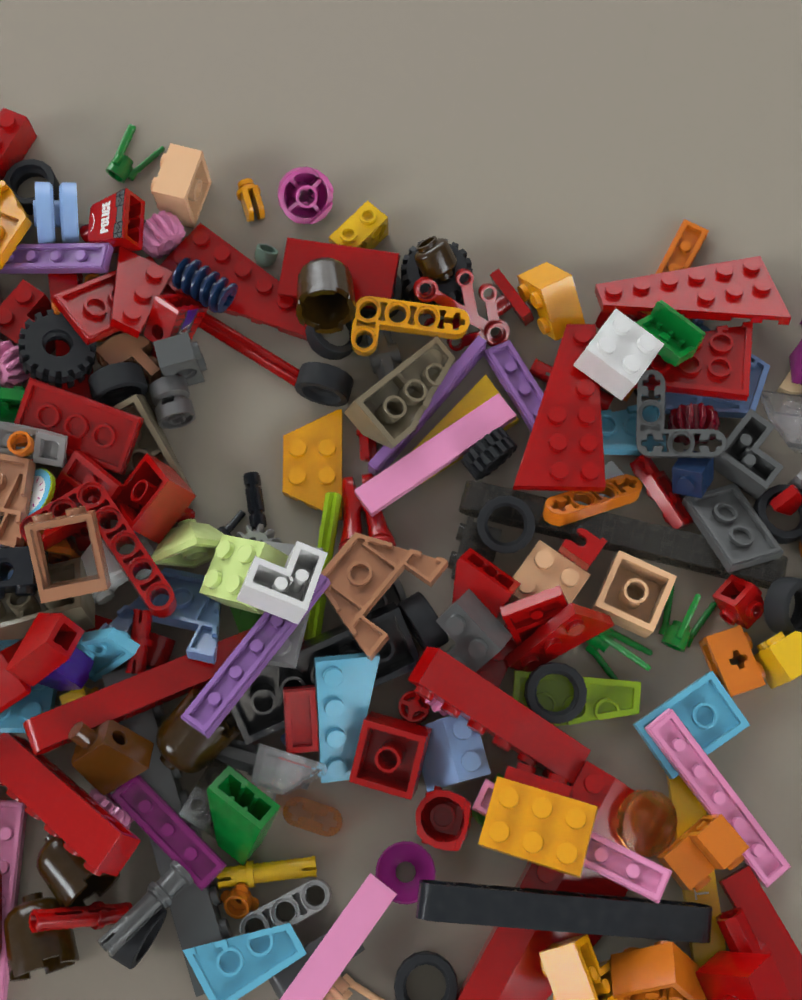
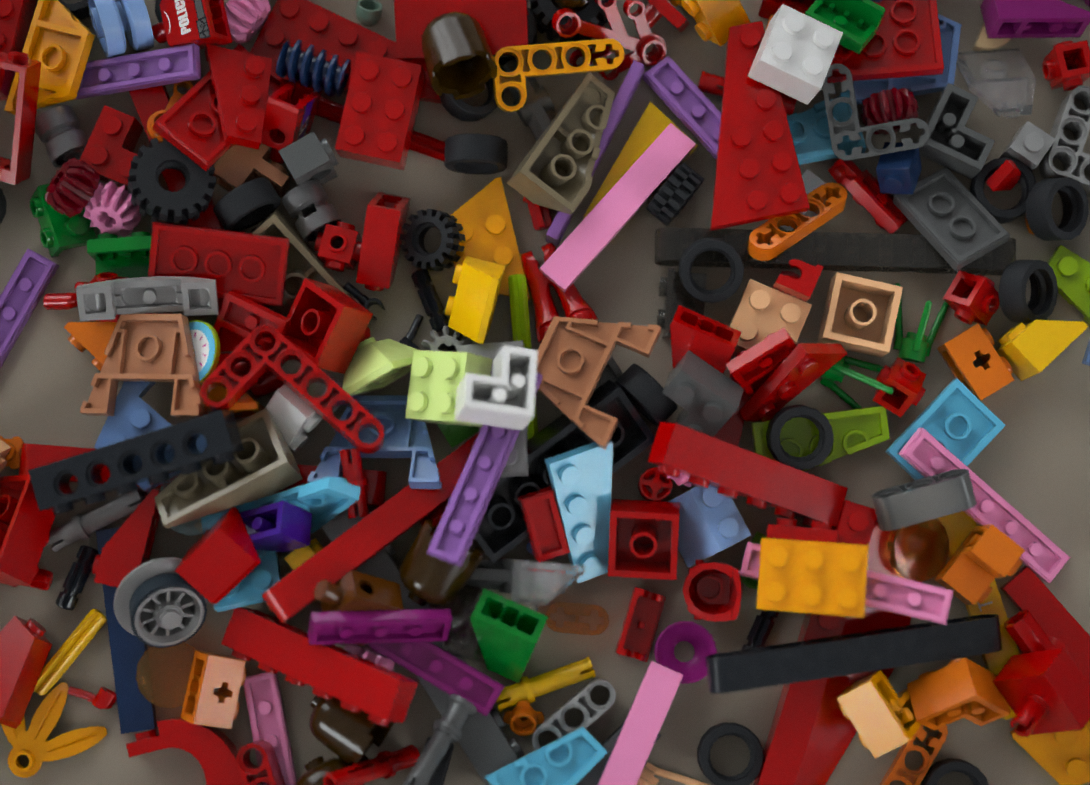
camera: 15 degrees left, 10 degrees up
(20, 439) = (164, 294): orange hinge -> none
(45, 647) = (264, 512): red slope -> none
(70, 588) = (276, 443): nougat window -> none
(122, 778) = (379, 626): none -> magenta tile
(187, 437) = (343, 257): none -> red brick
(198, 489) = (363, 299): none -> black hand
(225, 440) = (382, 240): none -> red slope
(251, 331) = (380, 110): none -> red brick
(256, 441) = (449, 240): none -> black tyre
(292, 505) = (475, 297): none -> yellow slope
(370, 836) = (640, 624): none -> red hinge
(482, 867) = (760, 629): none -> black axle
(660, 776) = (923, 499): none -> dark grey beam
(664, 667) = (907, 385): none -> red brick

